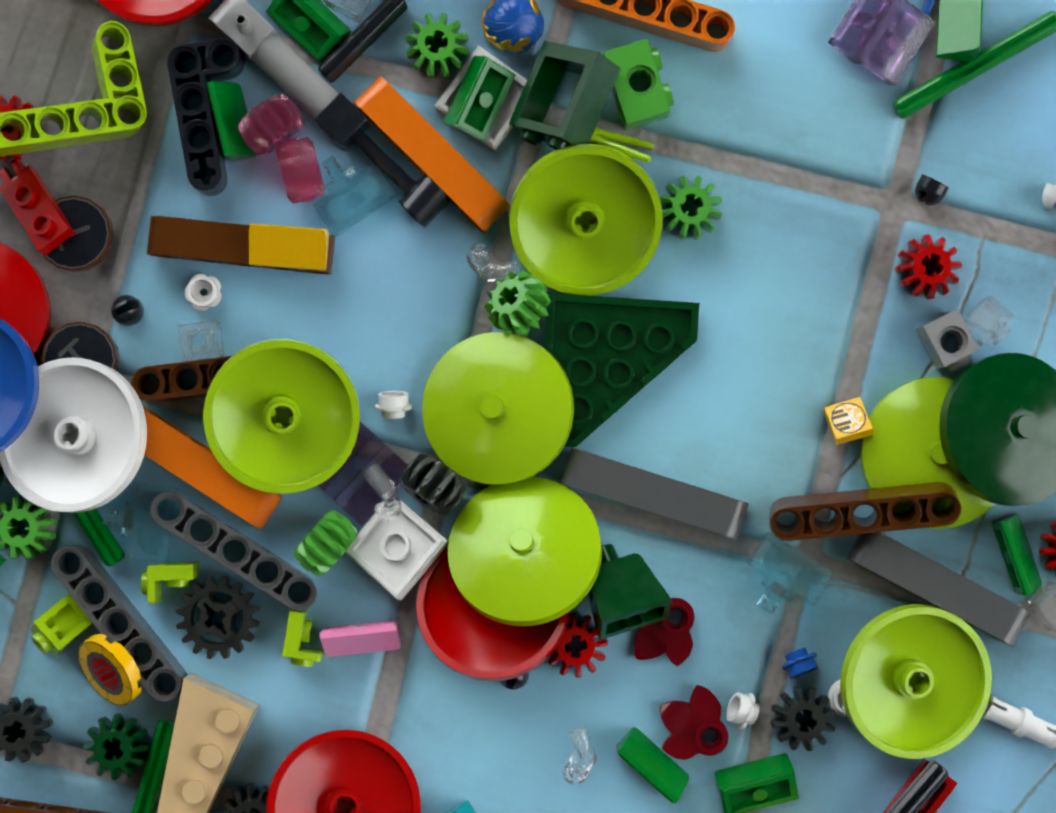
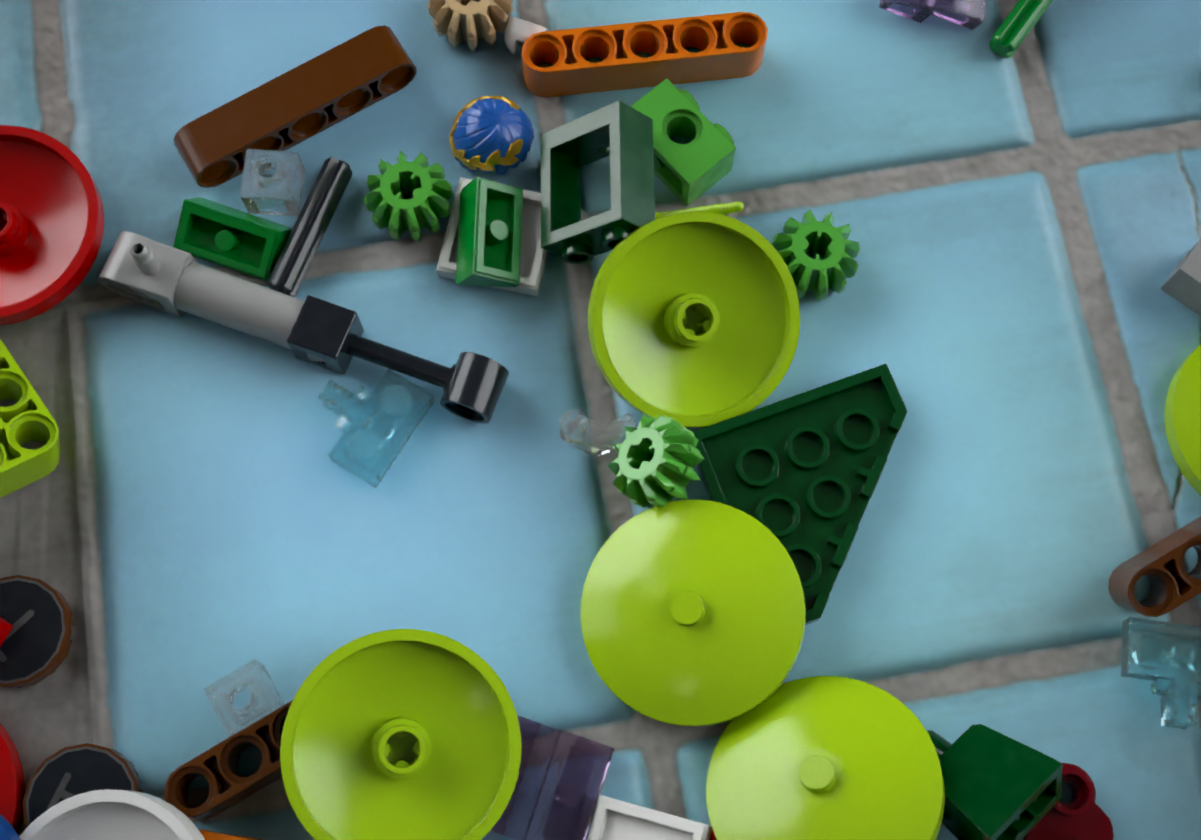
camera: 20 degrees left, 15 degrees down
(130, 317) = (134, 711): black hinge -> none
(200, 282) = (210, 632): white plate -> none
(203, 118) = (138, 406): black beam -> none
(210, 242) = (250, 547): reddish brown beam -> none
(228, 110) = (179, 394): green slope -> none
(271, 124) = (231, 372): clear pink gear -> none
(288, 247) = (316, 514): yellow slope -> none
(300, 170) = (294, 413): clear pink gear -> none
(386, 490) = (592, 791): clear arm -> none
(393, 404) = (548, 670): white plate -> none
(432, 154) = (457, 324): orange beam -> none
(433, 484) = (653, 754): pearl dark grey gear -> none
(654, 493) = (953, 633): dark grey beam -> none
(848, 421) = (1147, 430): yellow tile -> none
(930, 190) = (1089, 115): black hinge -> none
(940, 263) = (1139, 203): red gear -> none

